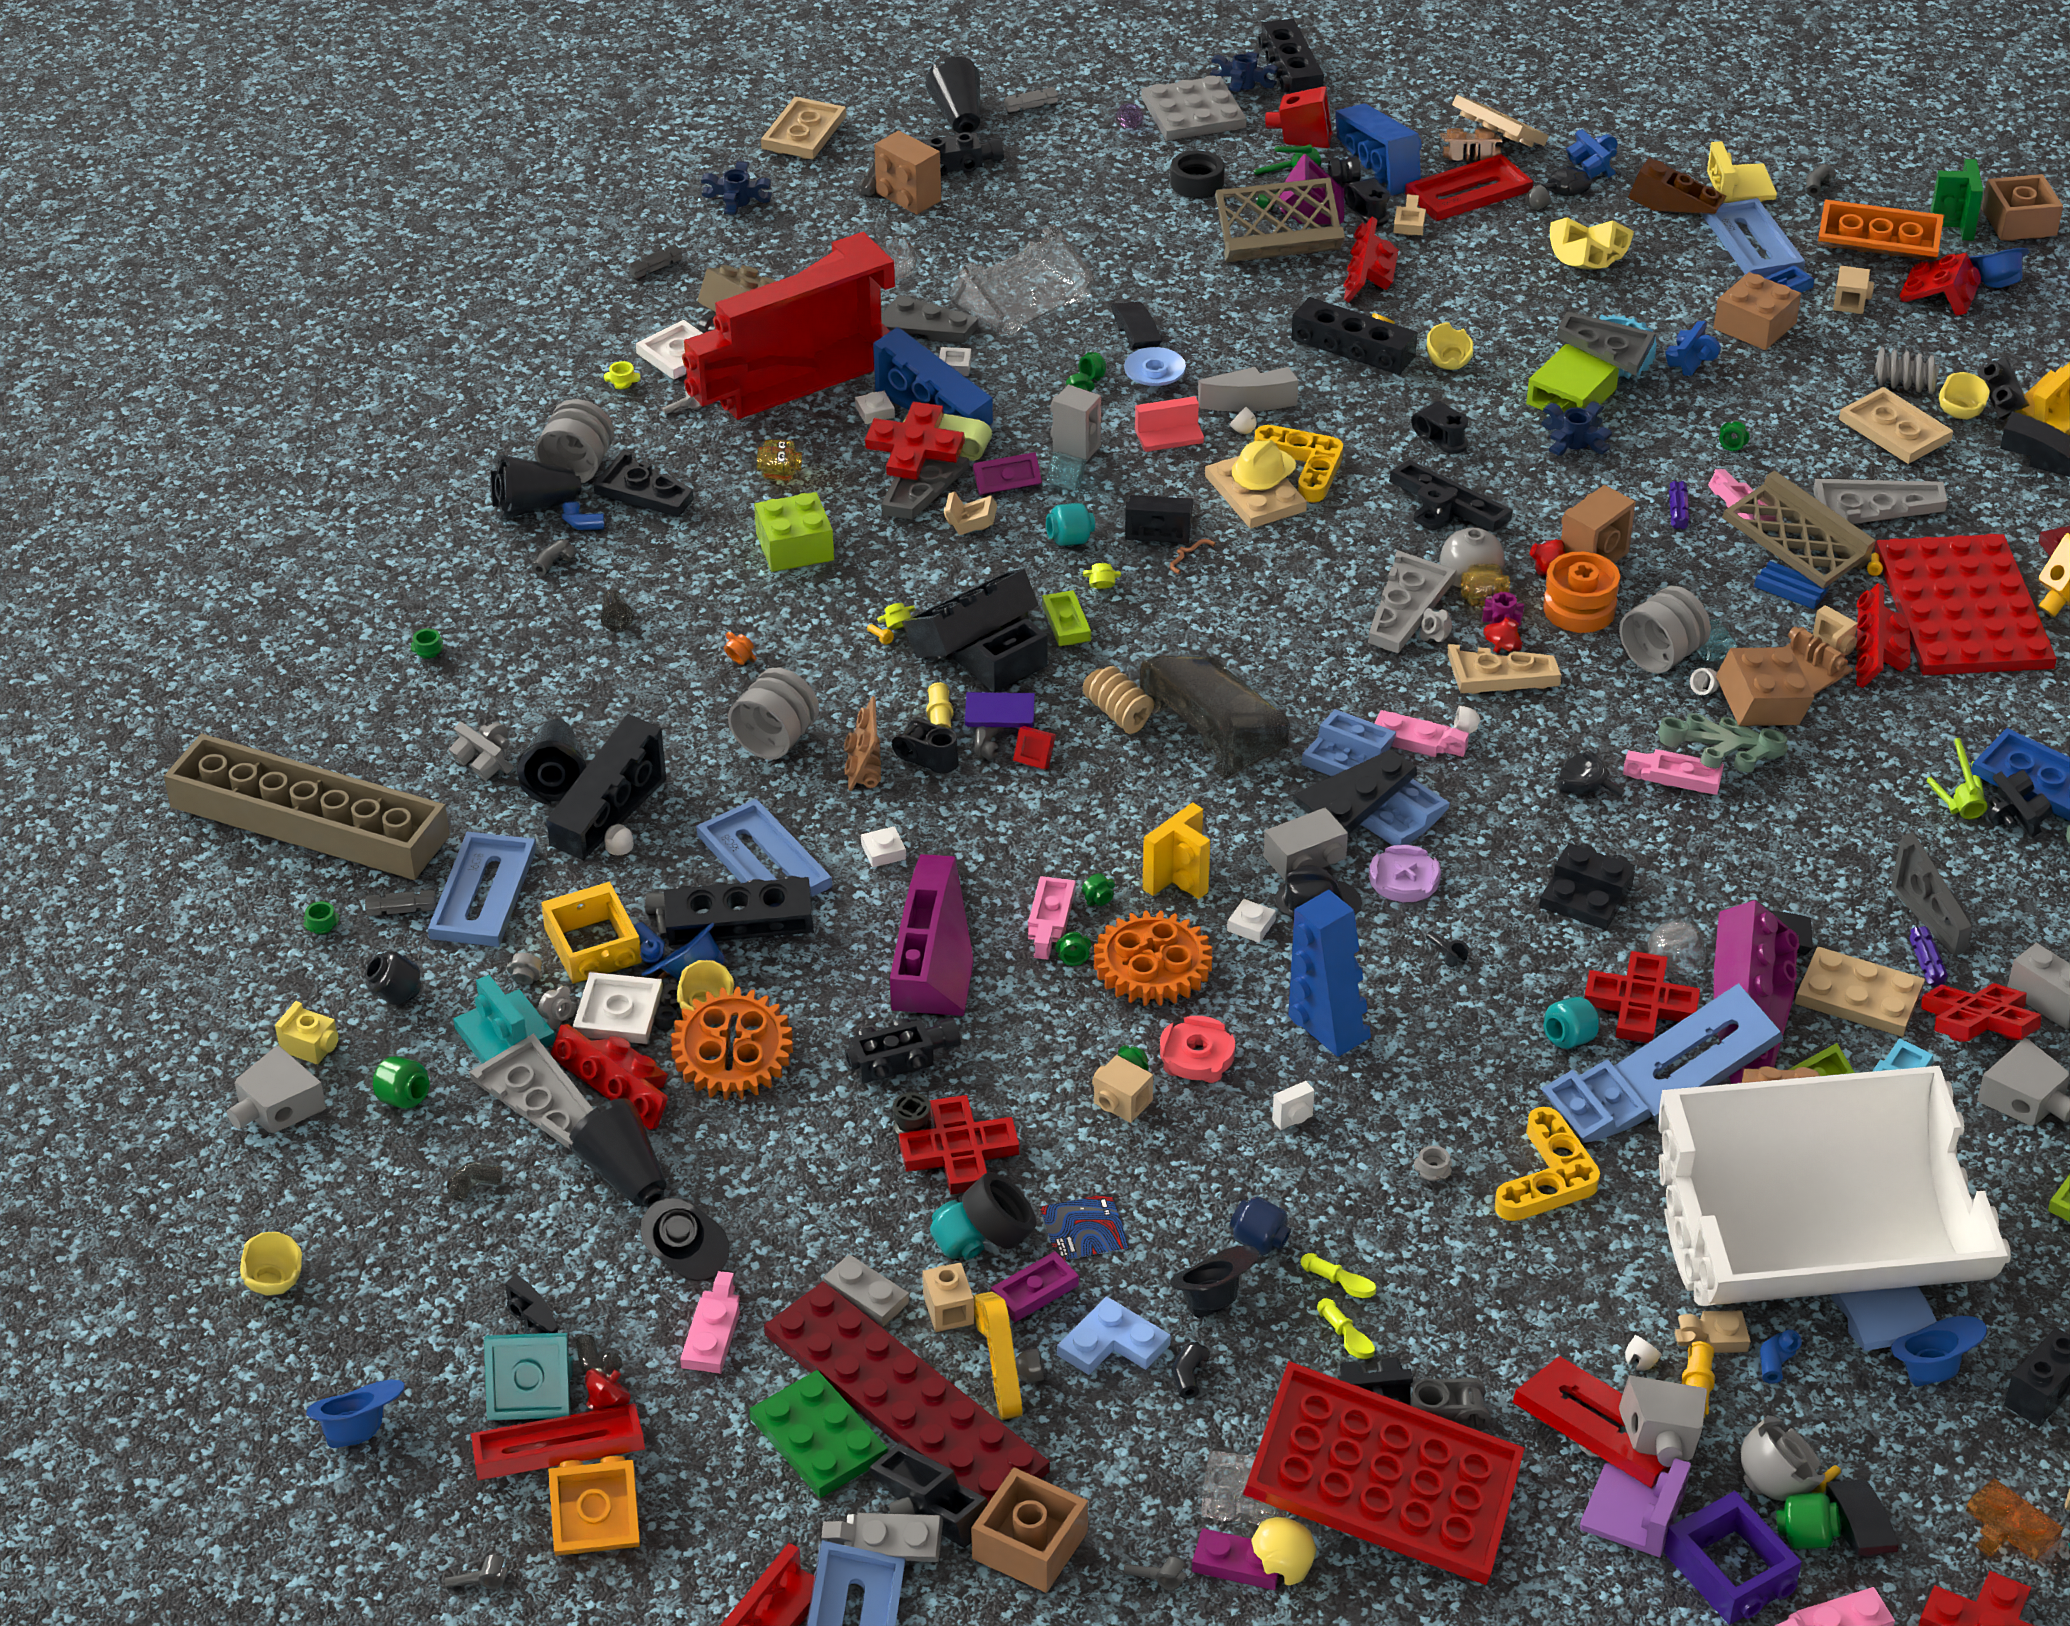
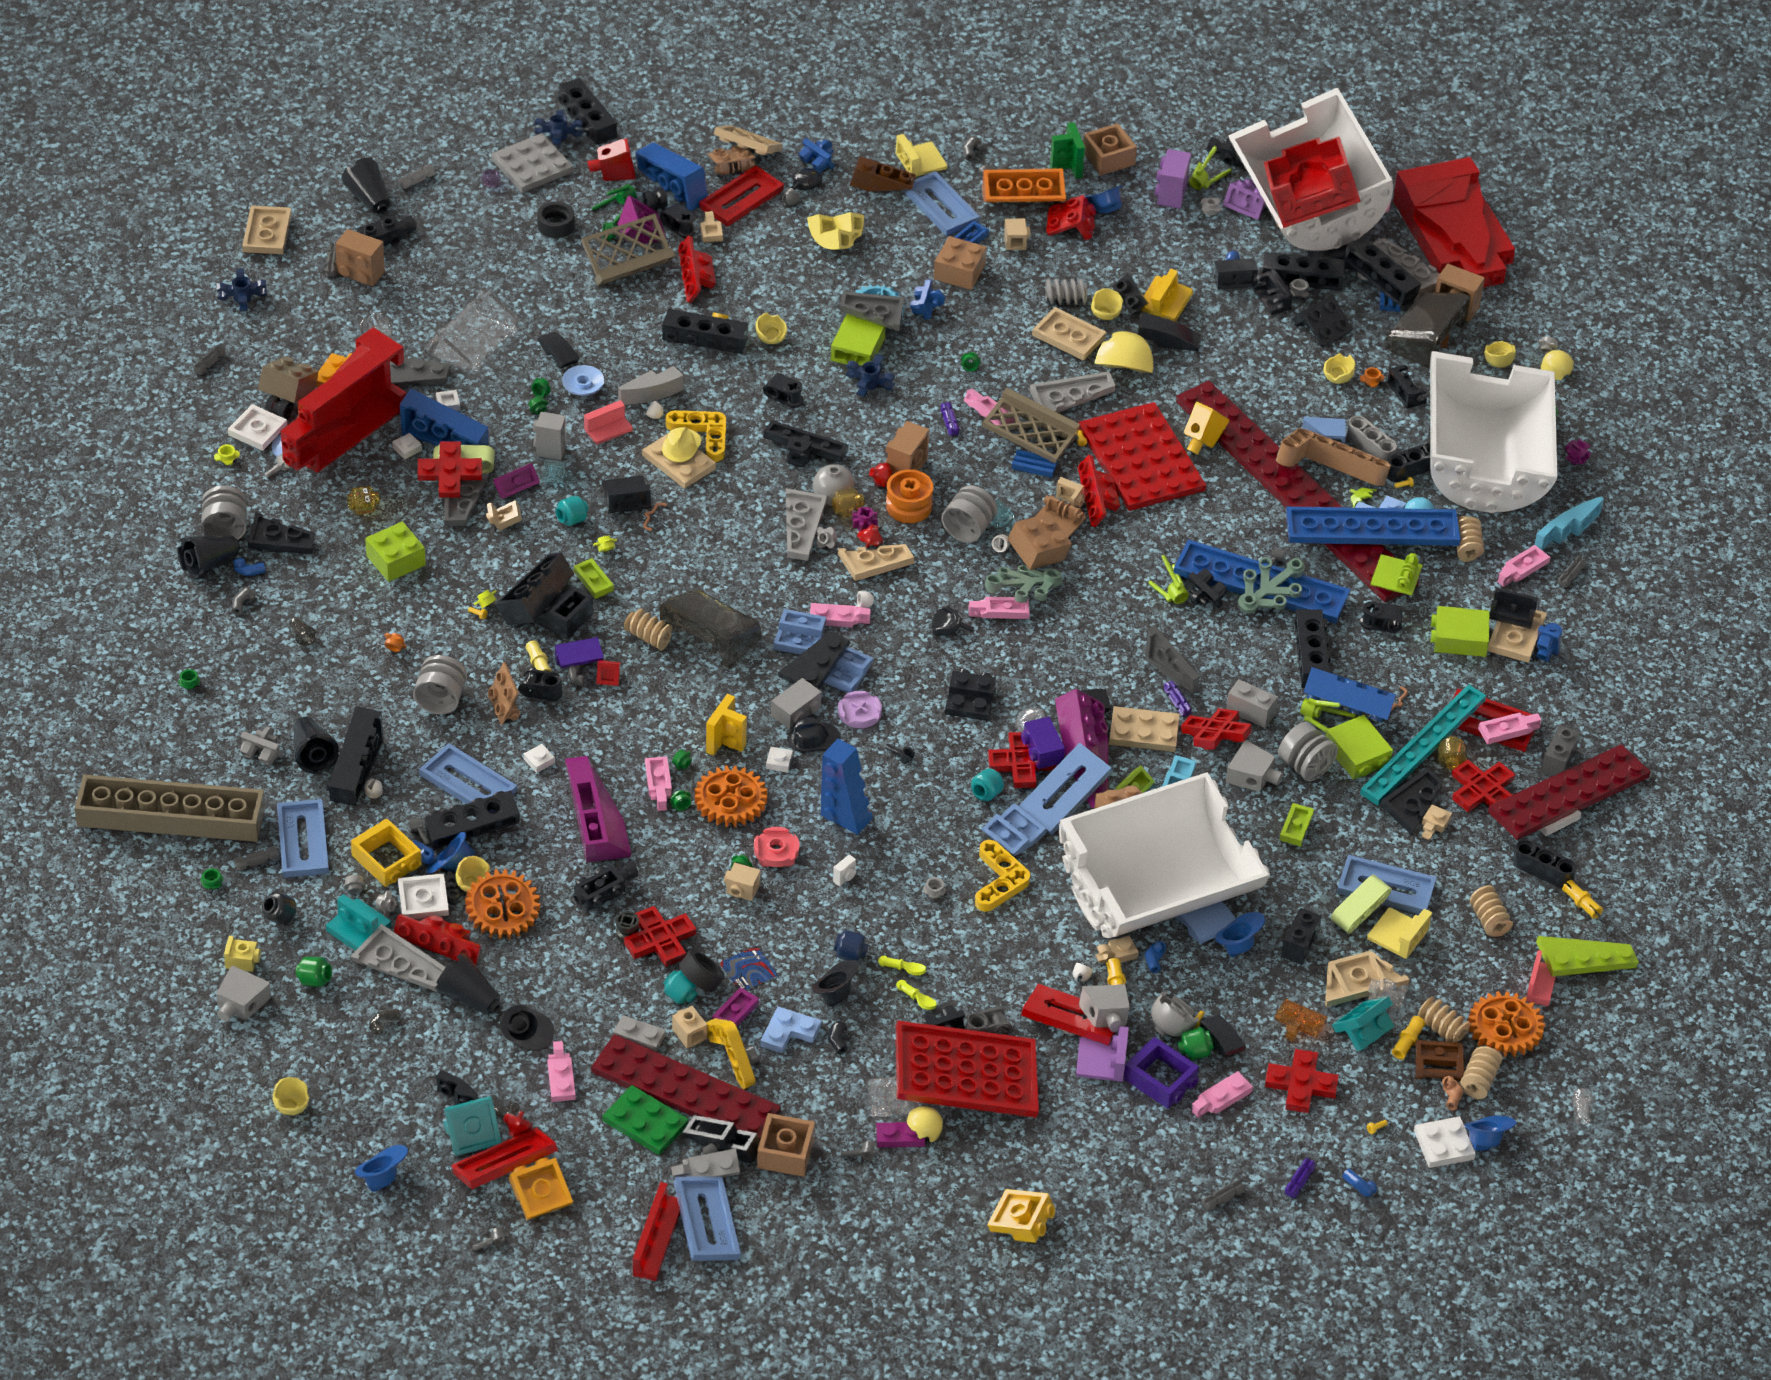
camera: 20 degrees left, 5 degrees up
(1680, 974) = (1043, 742): none -> dark purple brick
(1975, 459) = (1126, 351): none -> light yellow brick

